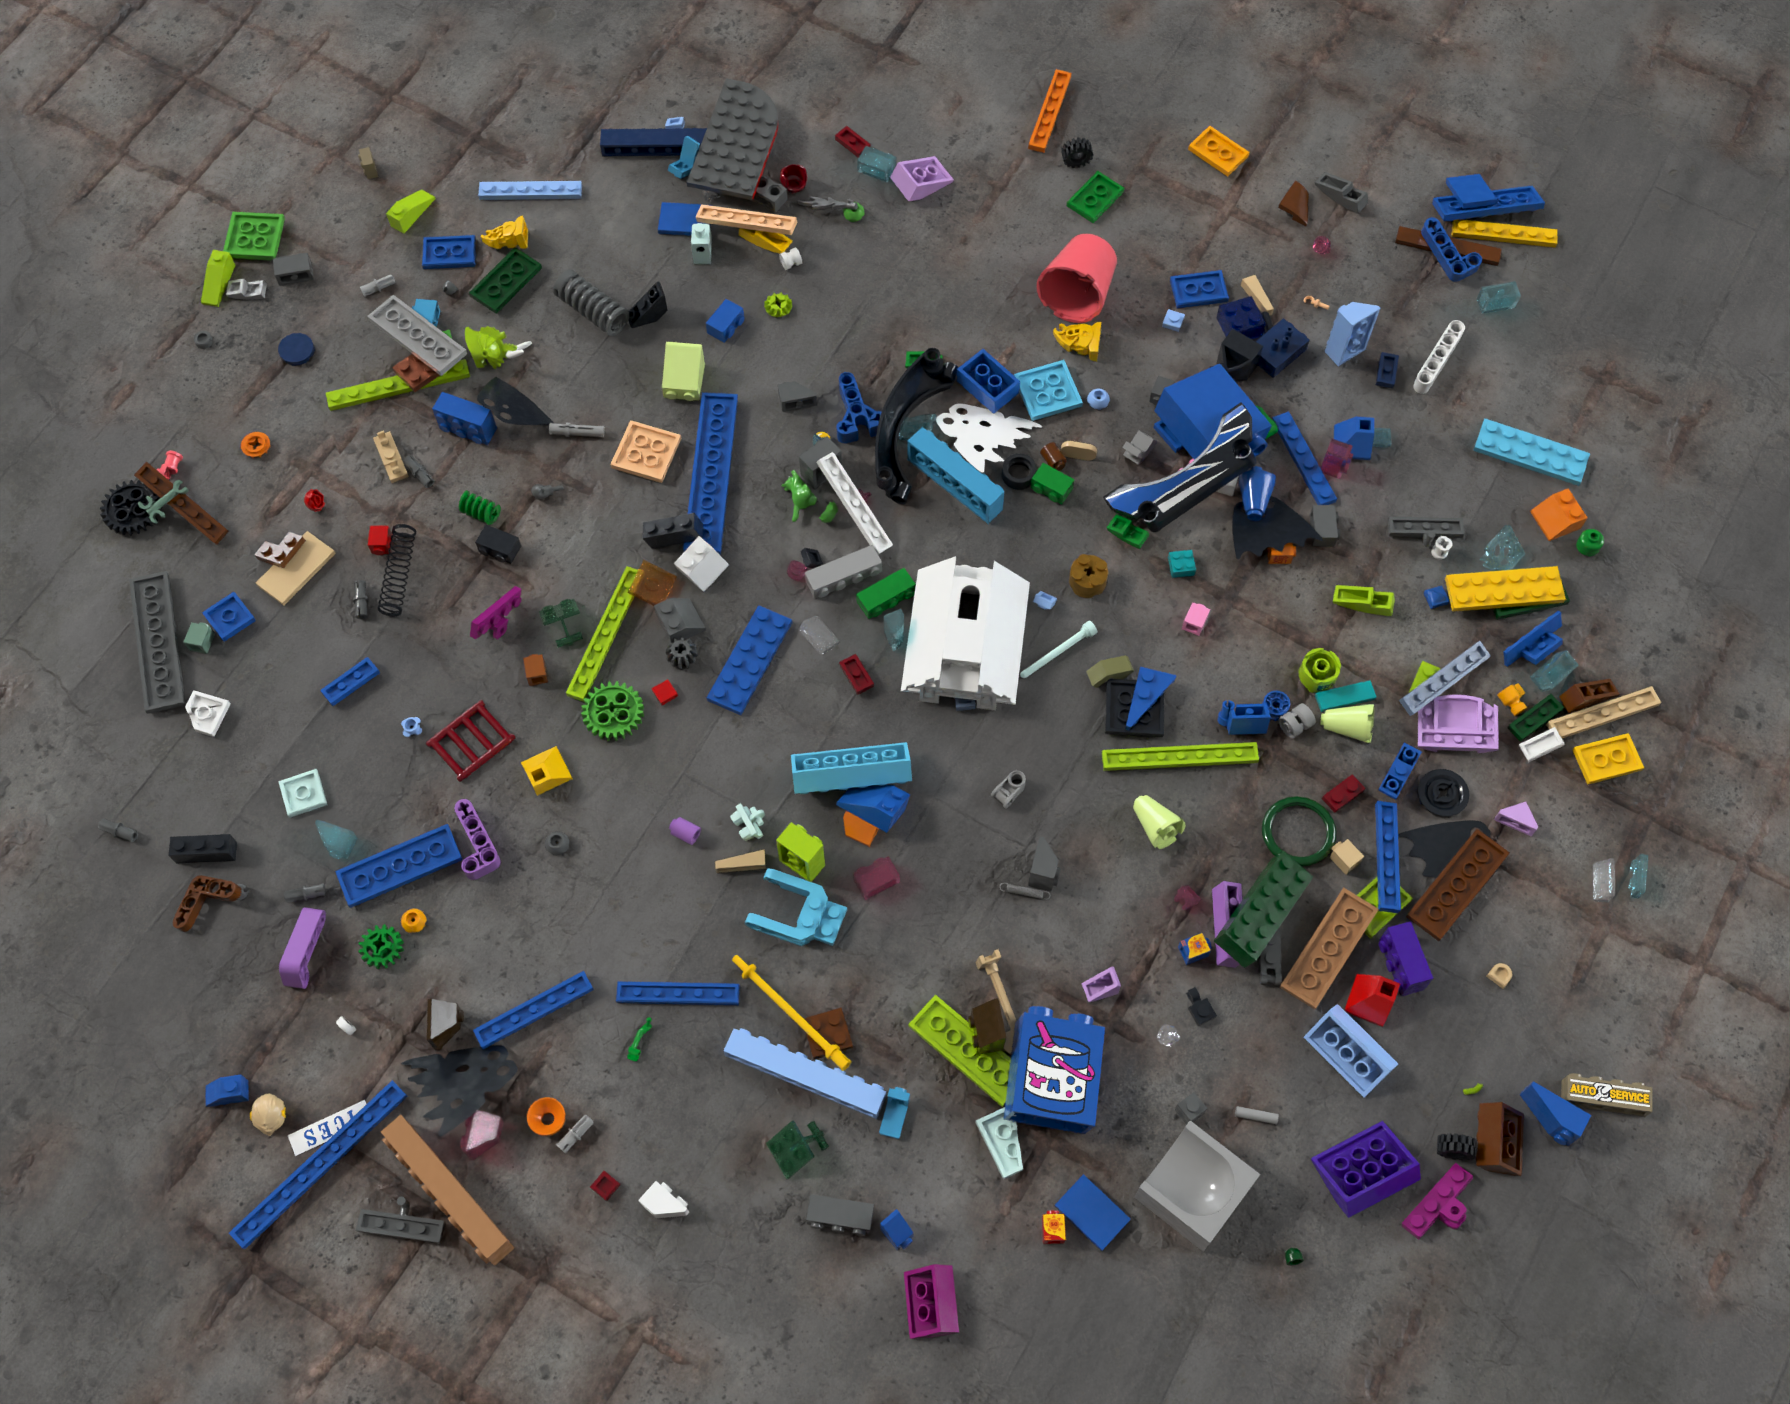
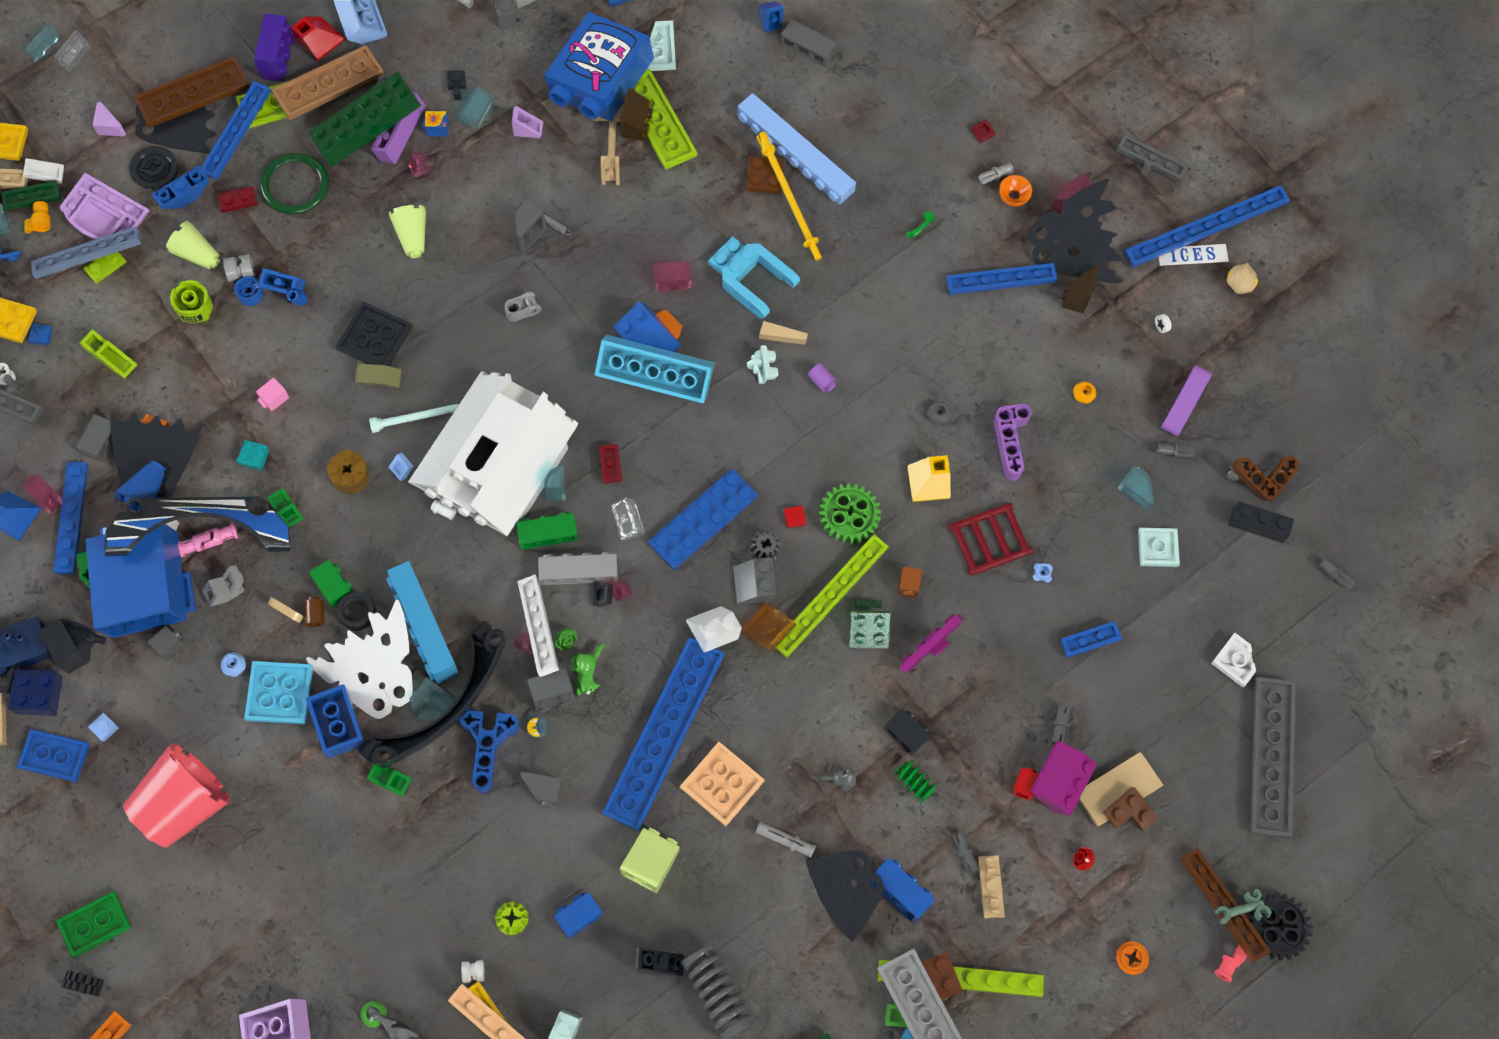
camera: 165 degrees left, 5 degrees up
(199, 637) = (1230, 742): sand green brick -> none
(227, 1090) = (1273, 307): blue slope -> none
(229, 616) = (1196, 756): blue plate -> none
(345, 549) = (1063, 778): none -> magenta slope
(387, 952) = (1127, 380): green gear -> none
(397, 606) = (1025, 699): black piece -> none
(398, 865) = (1085, 443): blue plate -> none
(450, 1194) = (1110, 162): medium nougat brick -> none
(489, 345) = (846, 972): lime helmet -> none
(662, 1203) = (942, 98): white slope -> none
(672, 530) = (729, 670): black brick -> none
(678, 993) = (876, 250): blue tile -> none
(792, 1149) = (827, 94): clear green plate -> none
(801, 852) = (730, 306): lime brick -> none
(895, 1112) = (734, 97): dark azure bracket -> none
(1080, 338) = (210, 737): yellow piece -> none
(1148, 688) = (354, 342): blue wing -> none
(1164, 984) = (476, 108): none -> clear light blue brick
(1168, 1035) = (494, 70): clear tile -> none
(1180, 756) = (359, 279): lime plate -> none
(1345, 696) = (173, 276): teal tile -> none
(1346, 856) = (268, 145): tan brick -> none
(1500, 974) = (204, 20): tan tile -> none

